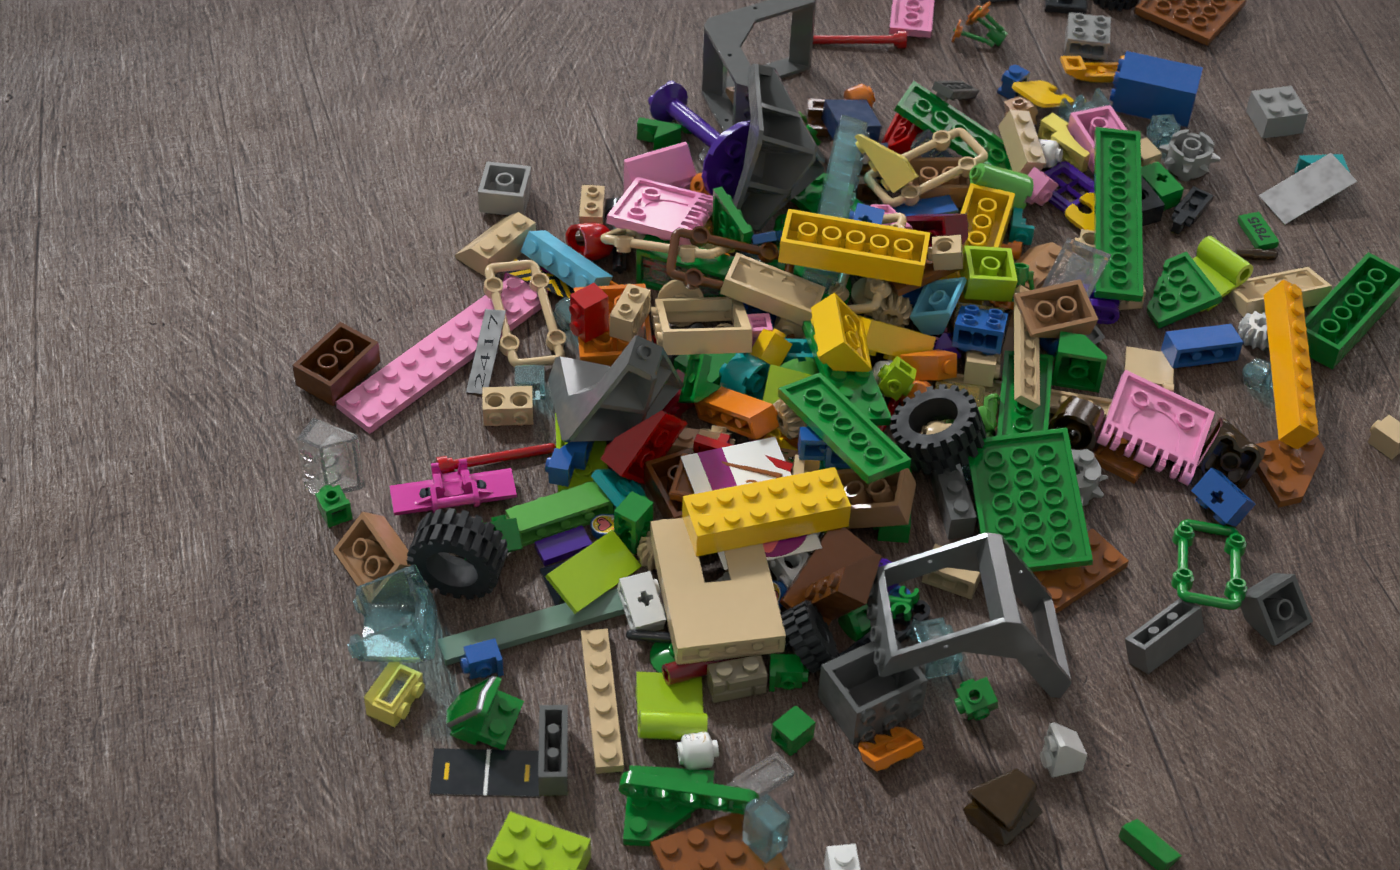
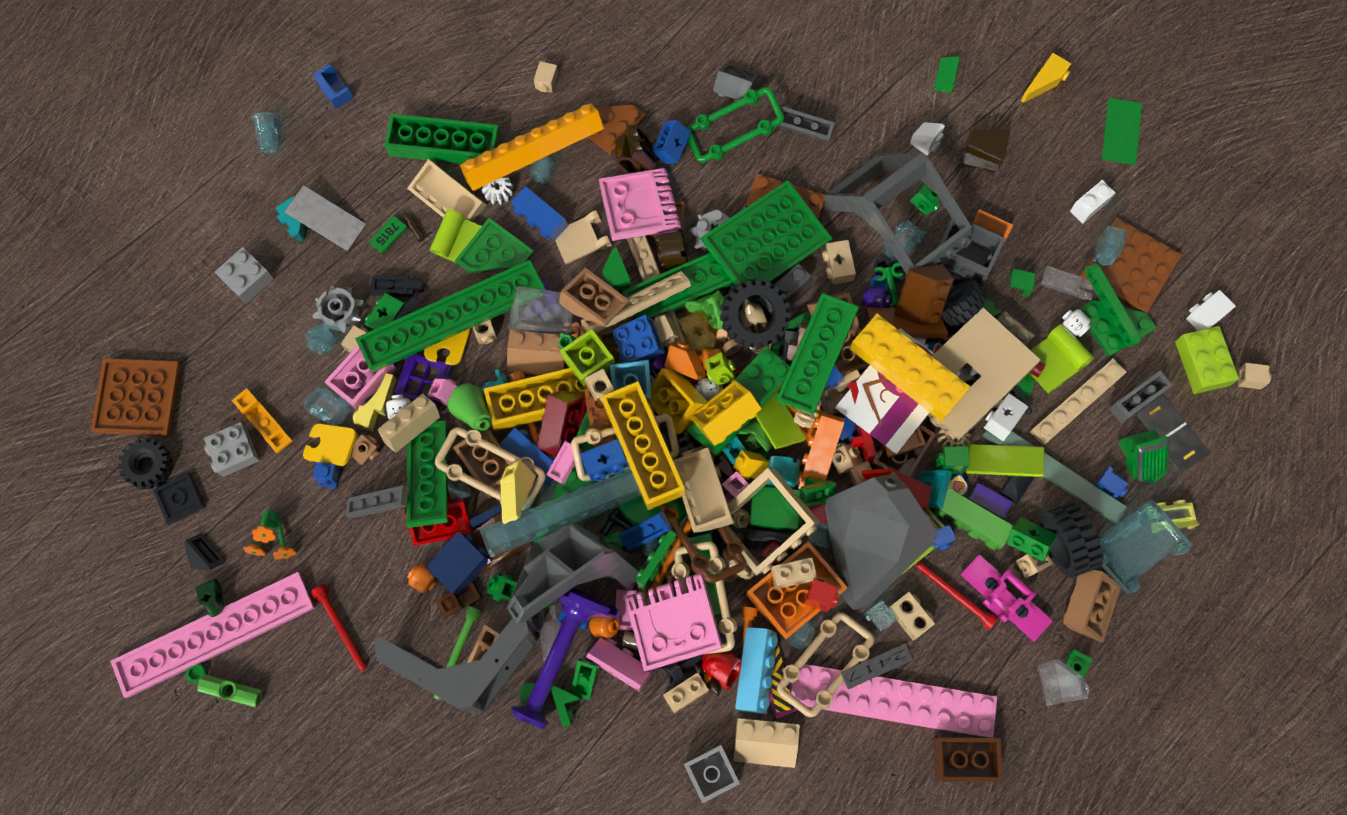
camera: 120 degrees left, 25 degrees up
(1155, 87) = (275, 364): blue brick -> none

